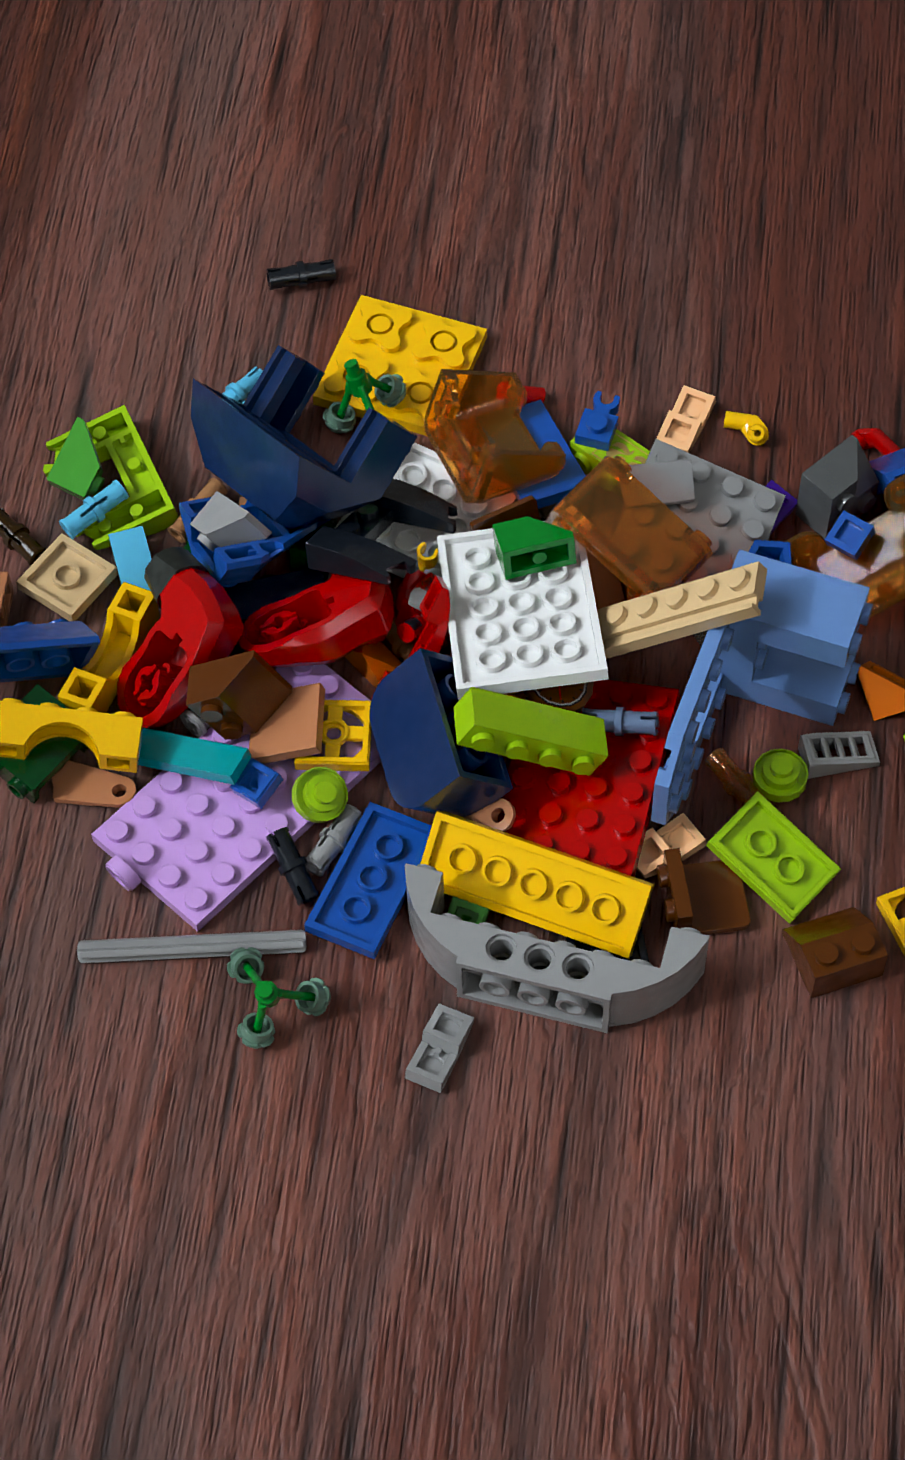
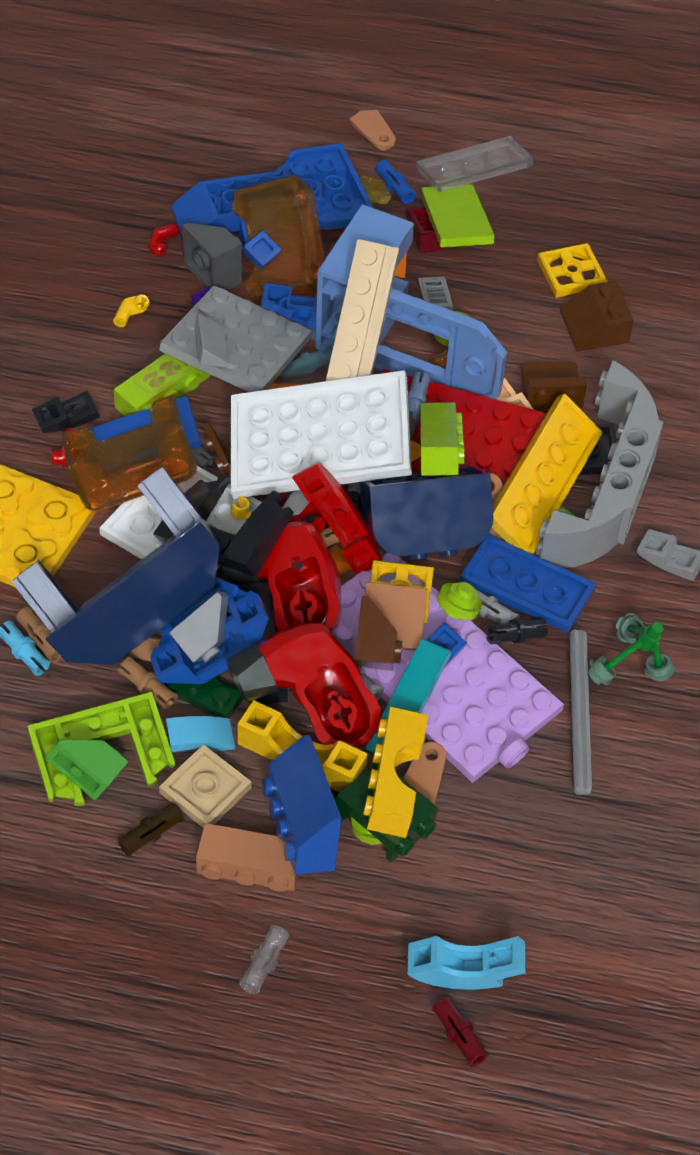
camera: 90 degrees left, 5 degrees down
(93, 509) = (144, 753): medium azure pin -> none
(388, 389) = (62, 528): plant -> none
(532, 546) = (269, 417): green slope -> none
(569, 384) = (58, 416): none -> black slope
(598, 425) = (127, 387): blue plate -> none
(630, 529) = (262, 355): clear orange windscreen -> none
(687, 418) = (119, 349): light nougat slope -> none
(773, 857) = (529, 339): lime tile -> none

